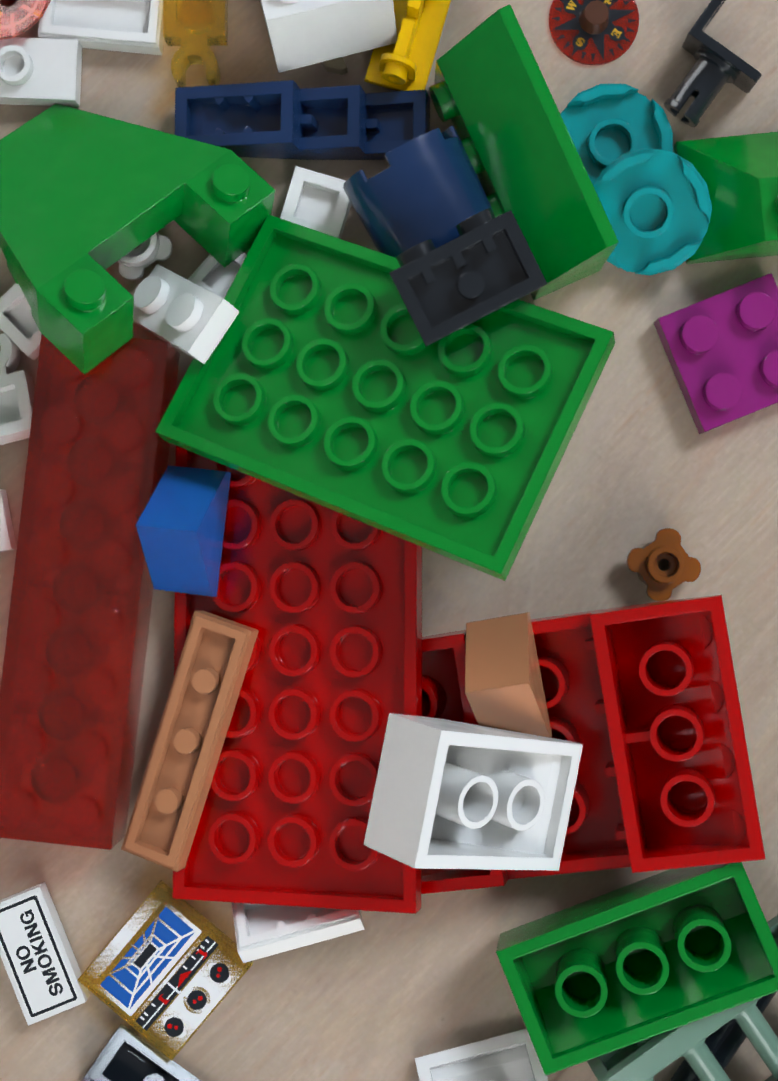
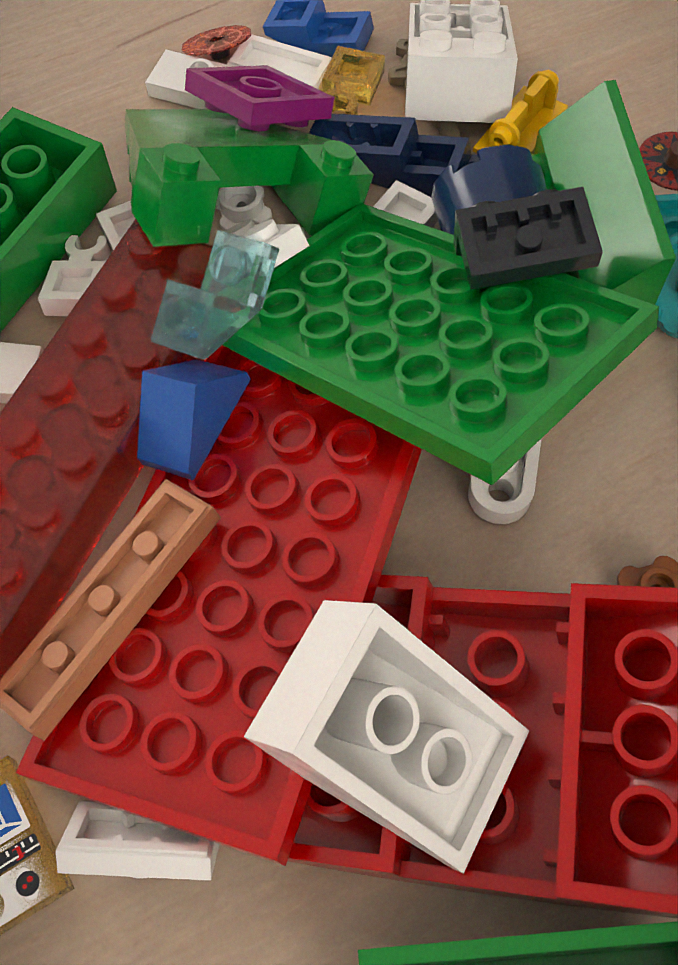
camera: 15 degrees right, 25 degrees down
(104, 100) = (258, 96): none -> magenta plate
(173, 437) = (230, 296): none -> clear light blue slope
(505, 675) = (462, 624): nougat slope -> none

